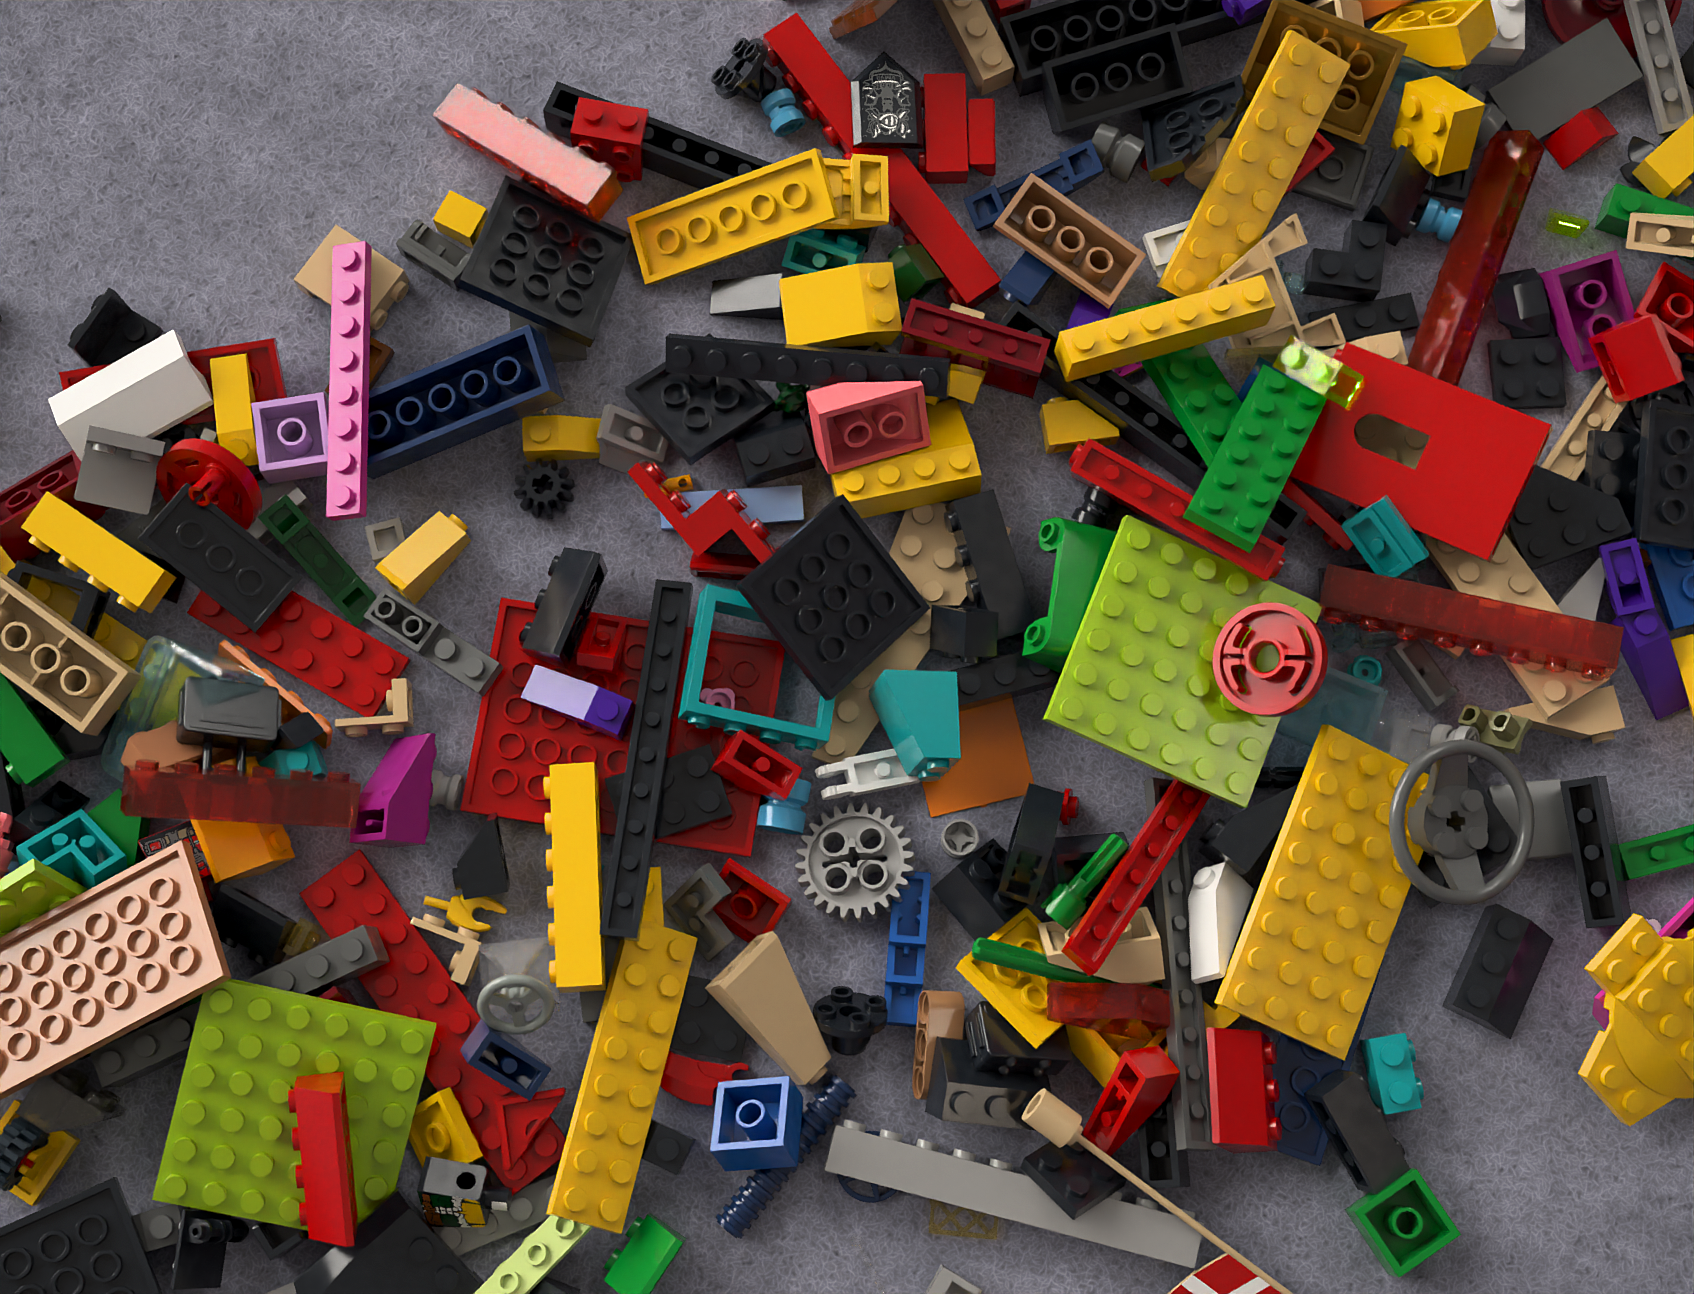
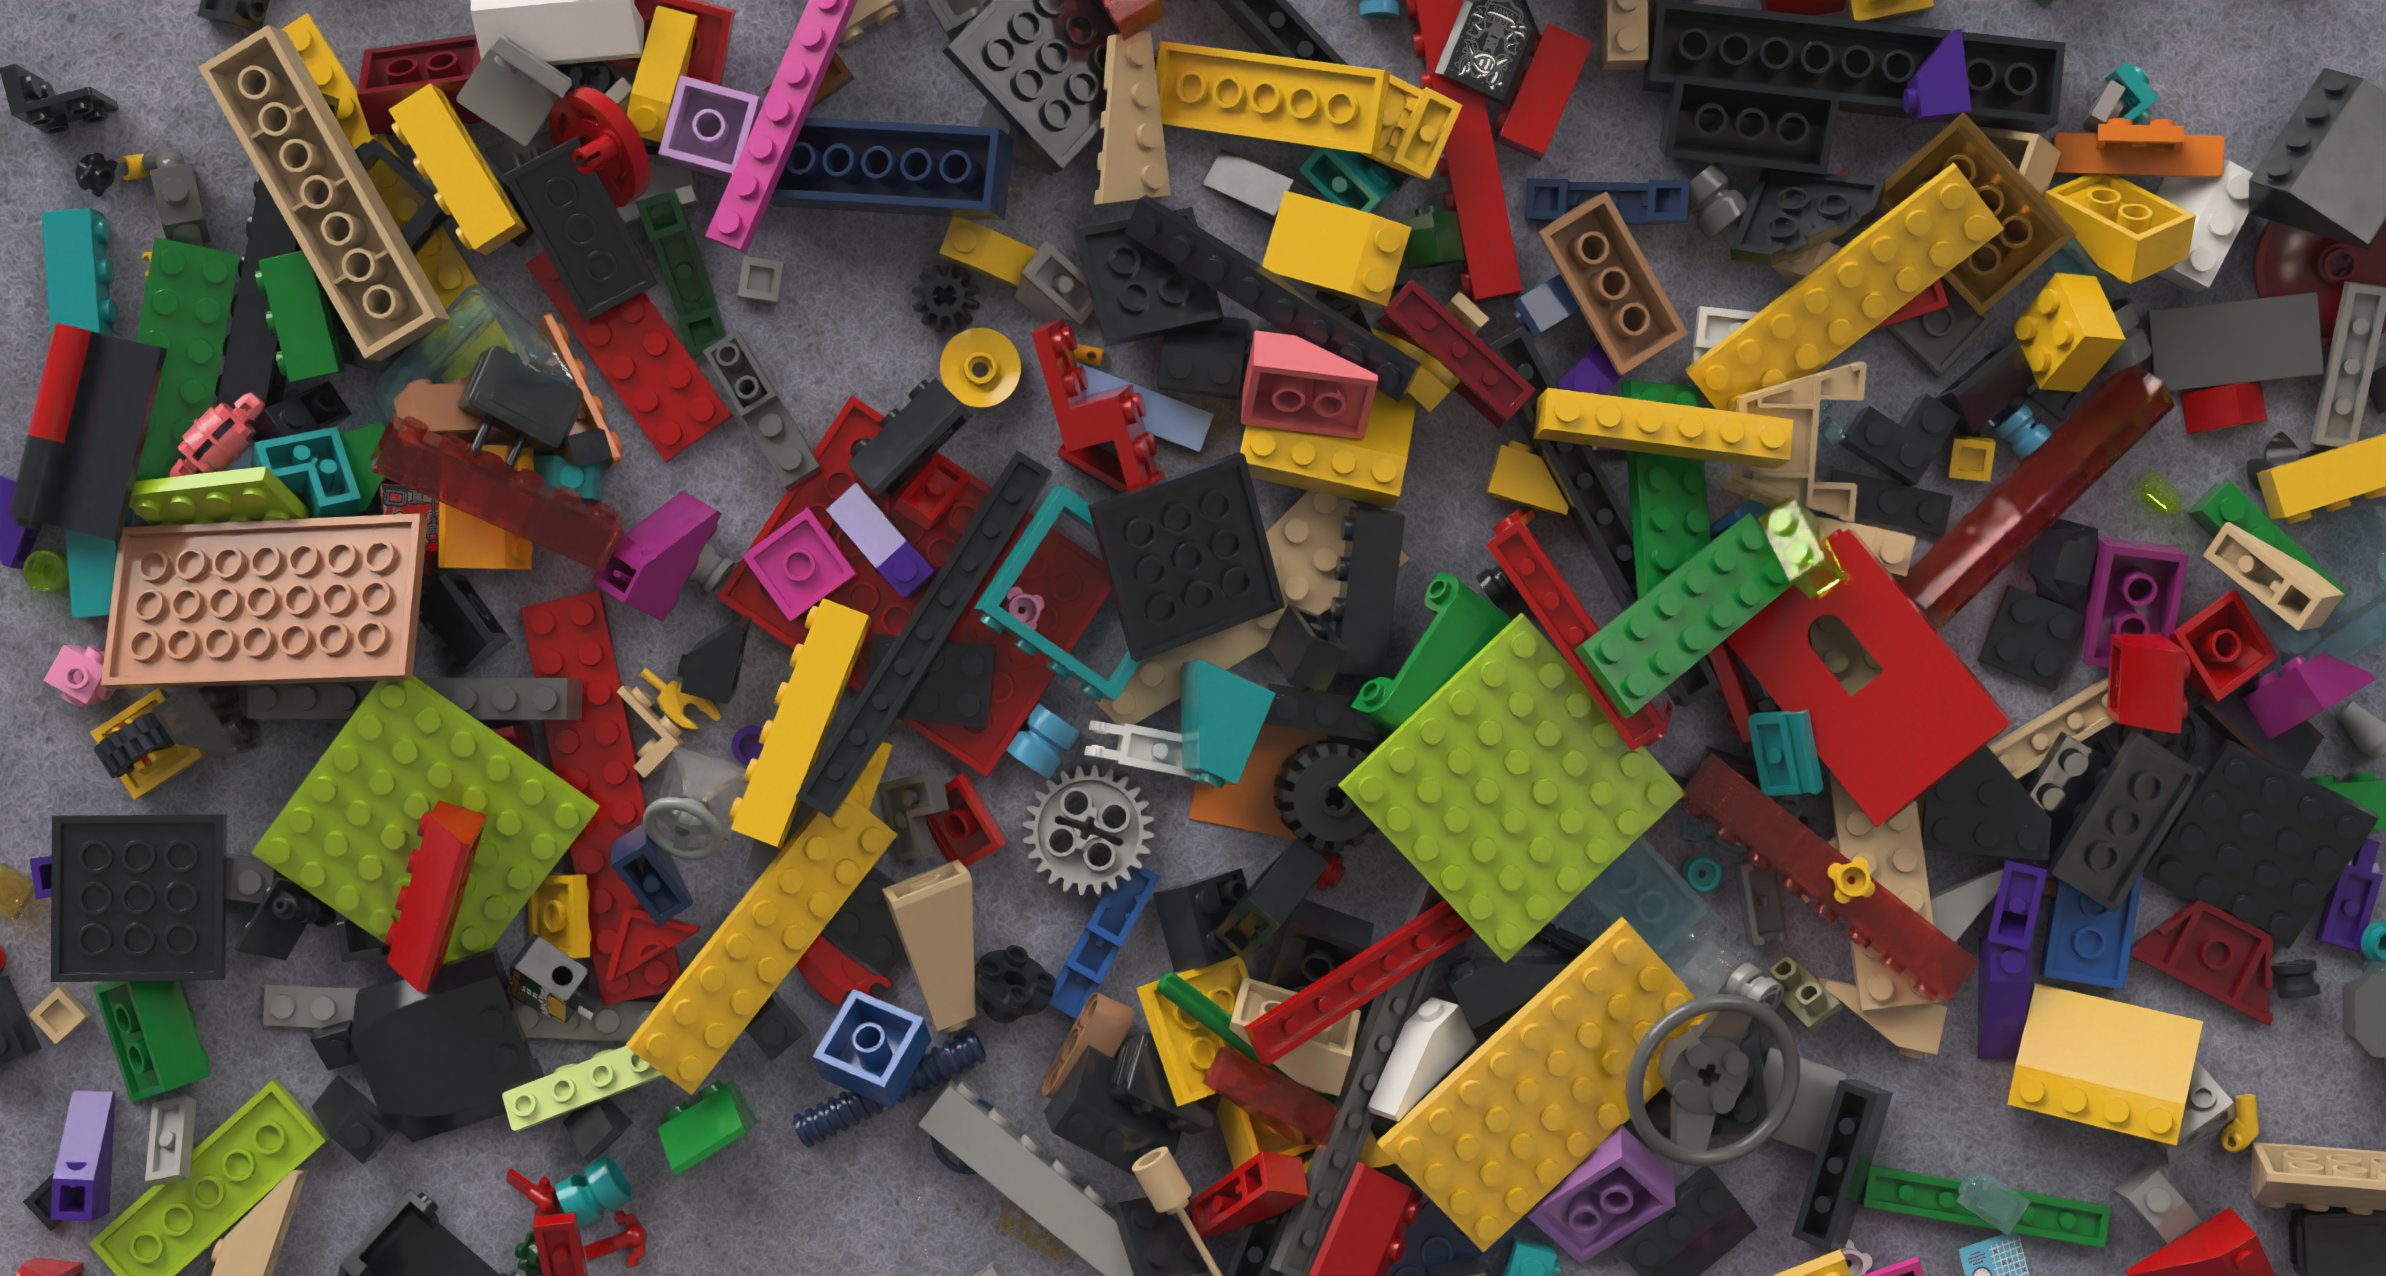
camera: 30 degrees right, 10 degrees up
(302, 938) = (505, 657): clear yellow plate -> none
(398, 700) = (701, 455): tan bracket -> none
(424, 556) = (791, 316): yellow slope -> none
(518, 750) = (799, 564): none -> dark pink plate
(538, 918) = (746, 744): none -> dark purple tile
(593, 515) = (985, 348): none -> yellow dish
(639, 297) = (1133, 140): none -> tan wing
(756, 767) = (1030, 694): red slope -> none
(791, 397) = (1242, 321): dark green plant -> none
(961, 833) = (1207, 860): light grey wheel -> none
(982, 135) = (1579, 118): red slope -> none
(1019, 753) = (1304, 792): none -> black wheel
(1069, 900) = (1282, 972): green piece -> none
(1270, 692) = (1619, 806): piece -> none
(1410, 257) = (1971, 458): none -> yellow plate
(1420, 969) = (1606, 1197): none -> medium lavender slope
(1493, 599) = (1856, 869): none -> yellow plate

